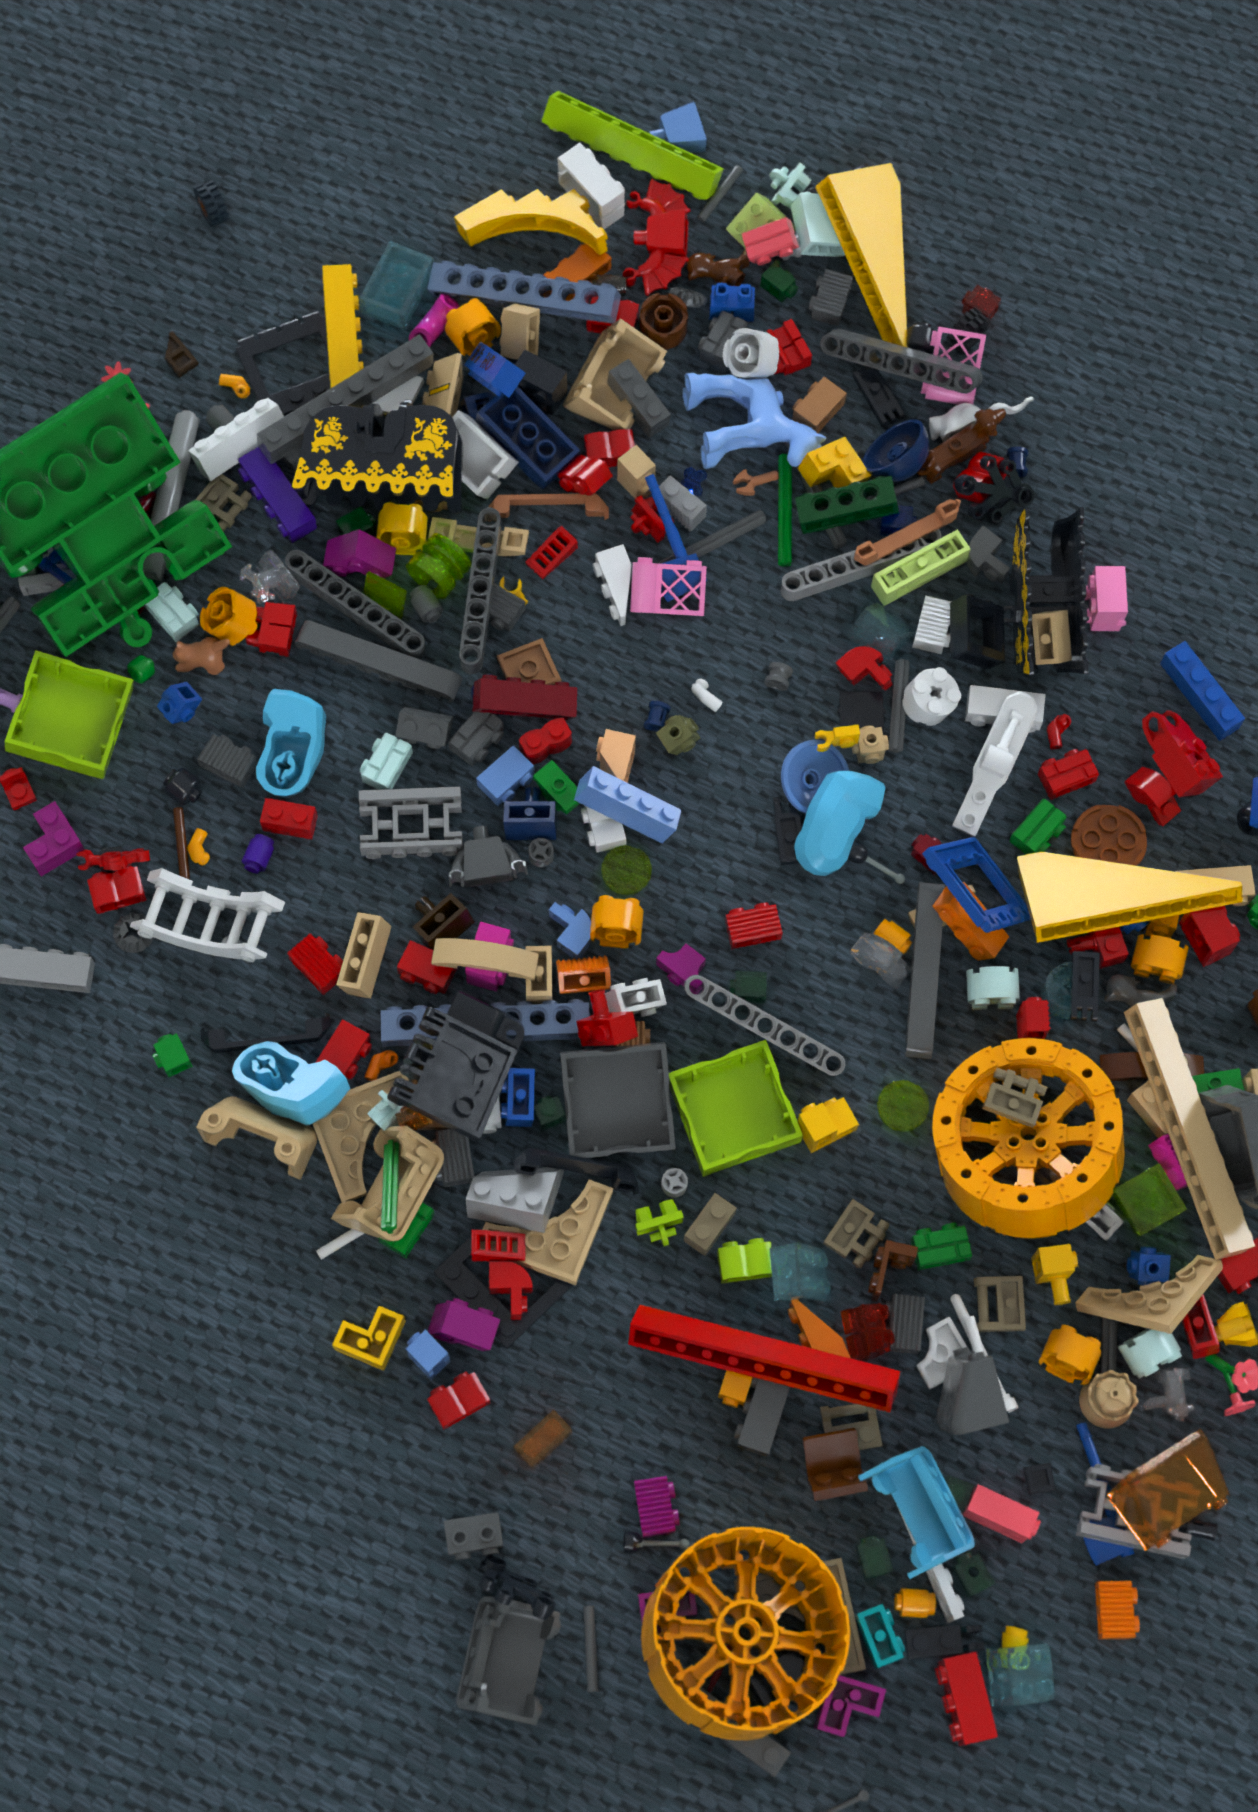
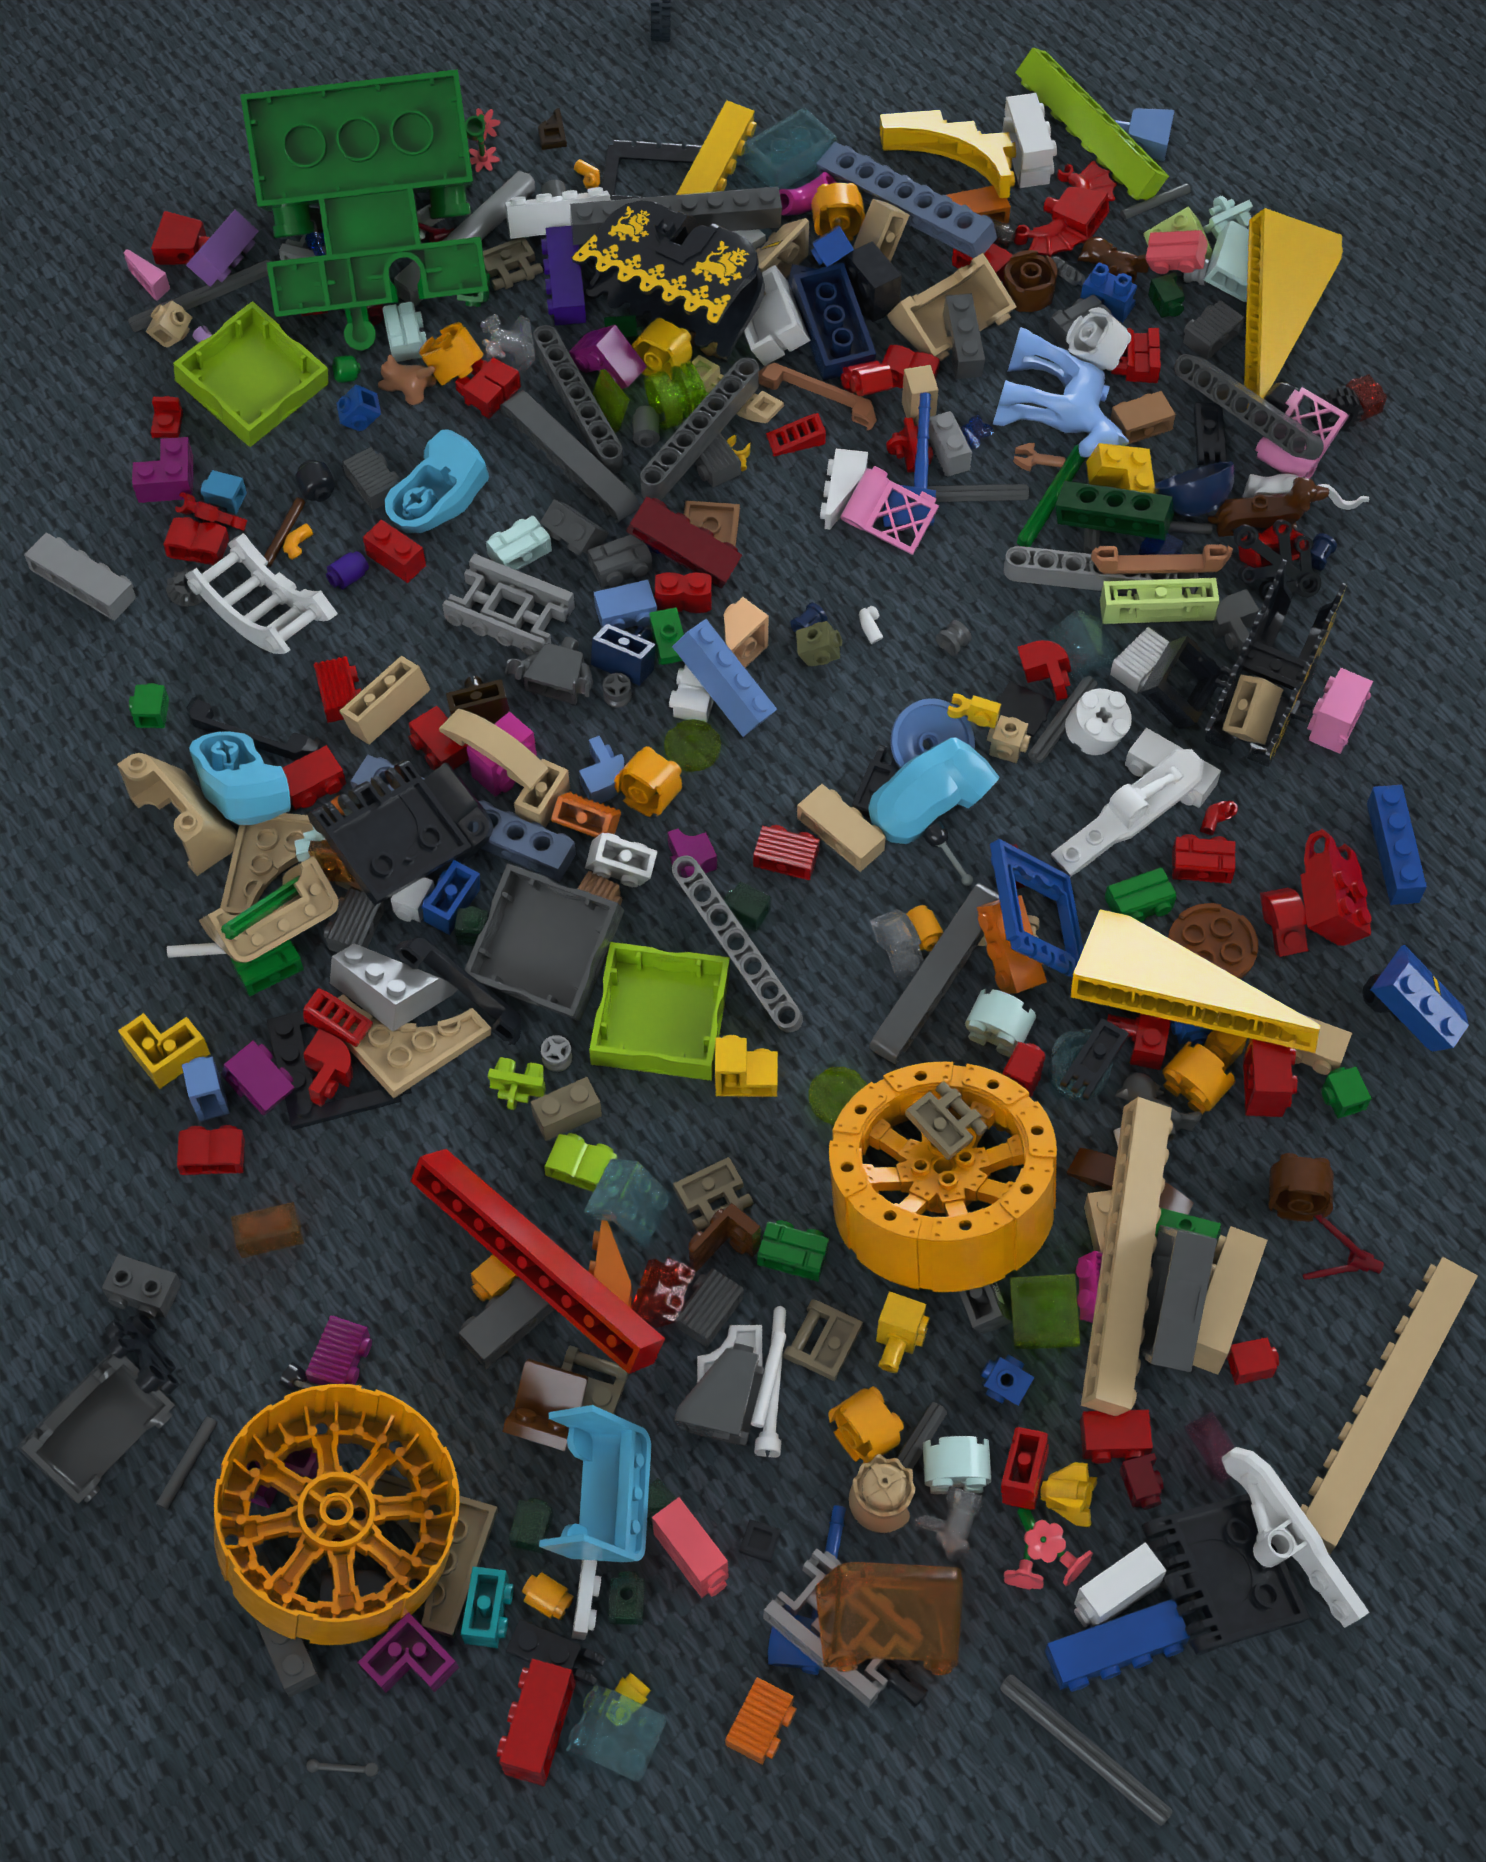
camera: 30 degrees right, 10 degrees down
(110, 833) = (224, 490): none -> dark azure brick
(605, 1027) = (571, 863): red brick -> none
(783, 883) = (841, 827): none -> tan brick
(1156, 1304) = (990, 1416): tan plate -> none

